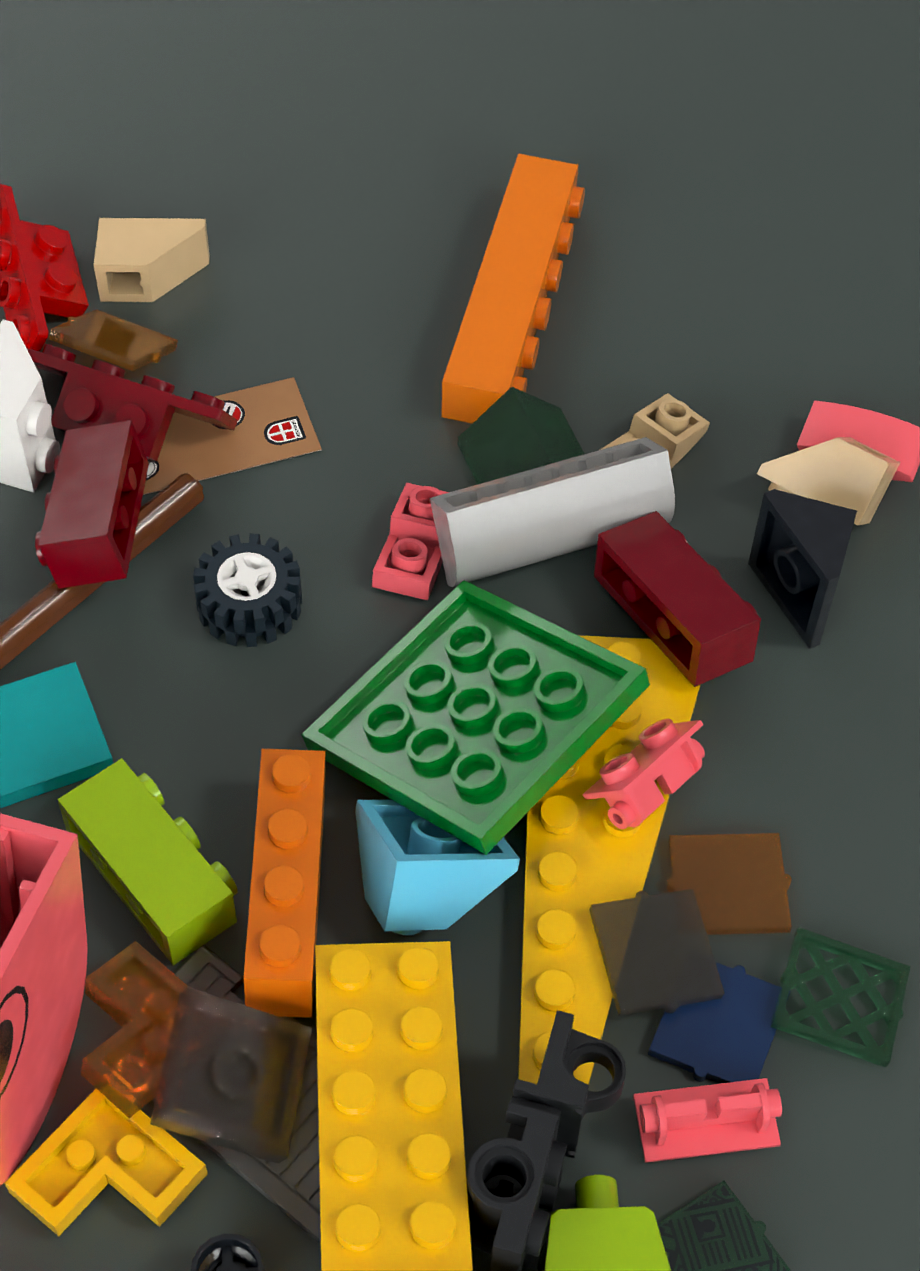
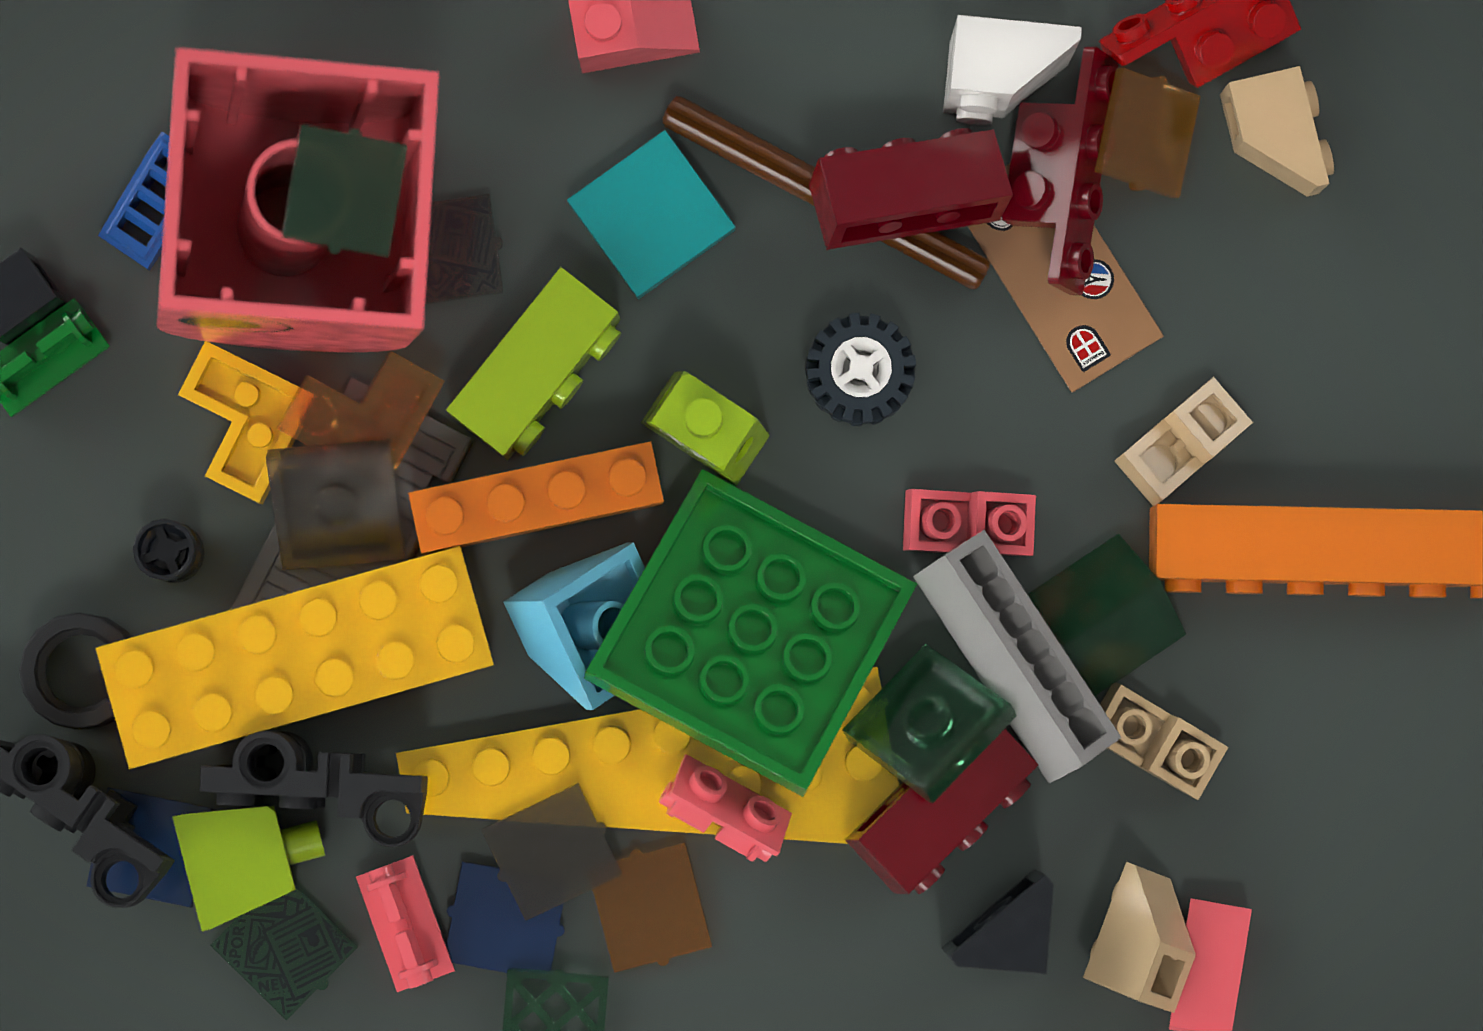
camera: 80 degrees right, 30 degrees up
(254, 708) = (706, 426): none -> lime torso
(389, 376) = (1183, 441): none -> tan slope
(600, 579) = (929, 723): none -> clear green tile

